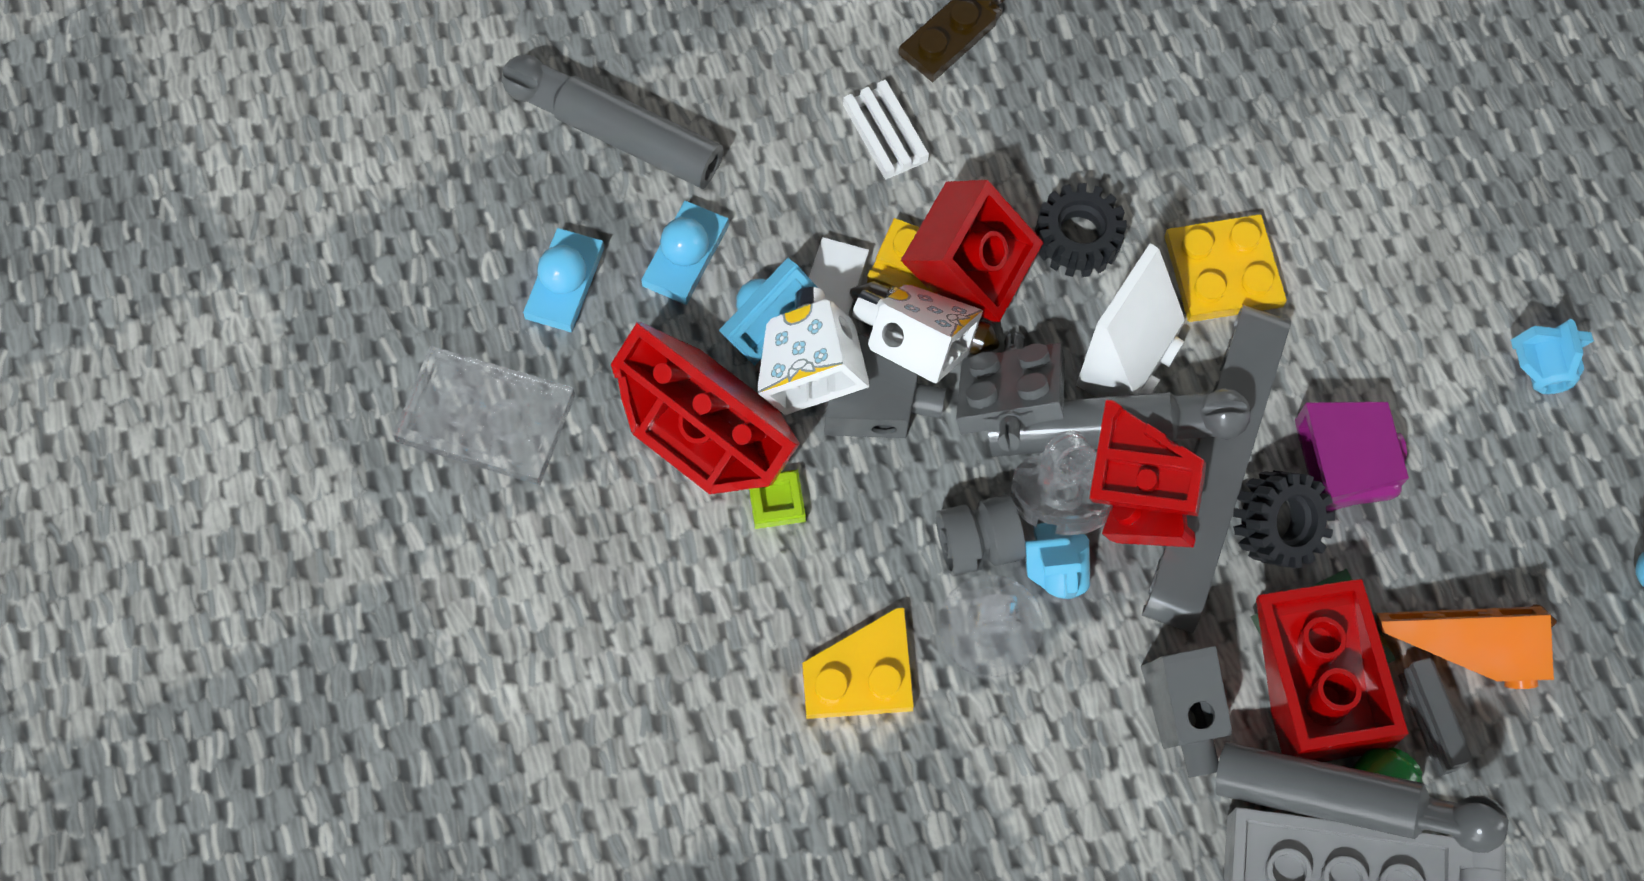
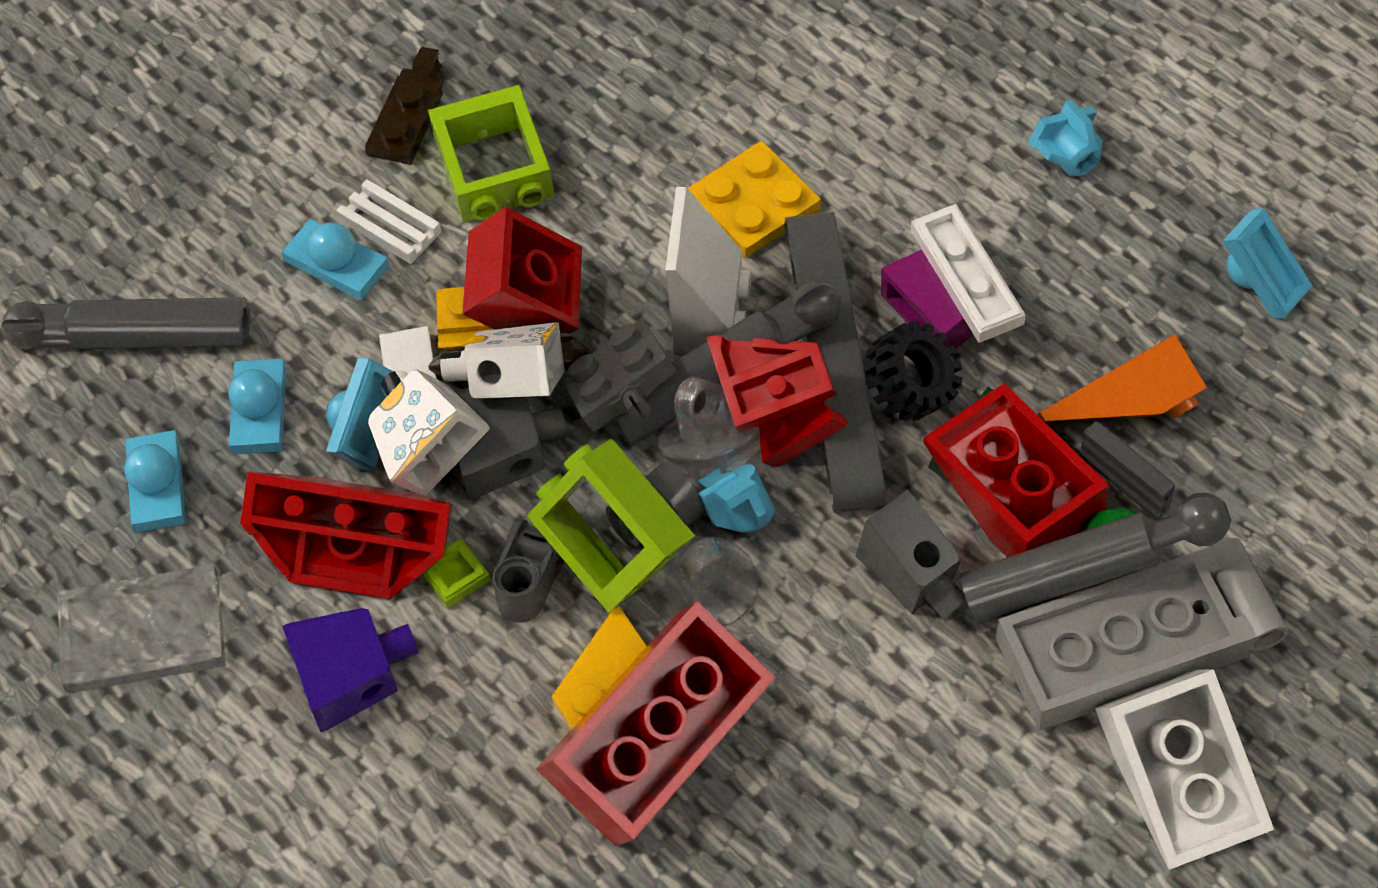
camera: 20 degrees left, 10 degrees down
(639, 539) = (346, 662): none -> dark purple torso
(821, 143) = (336, 258): none -> medium azure tile
(847, 523) = (525, 563): none -> dark grey piece
(877, 746) = (656, 724): none -> red brick
(956, 528) = (635, 504): none -> lime window
(1011, 69) = (480, 119): none -> lime window
(1091, 207) = (604, 202): black tyre -> none
(1384, 449) = (967, 273): none -> white tile

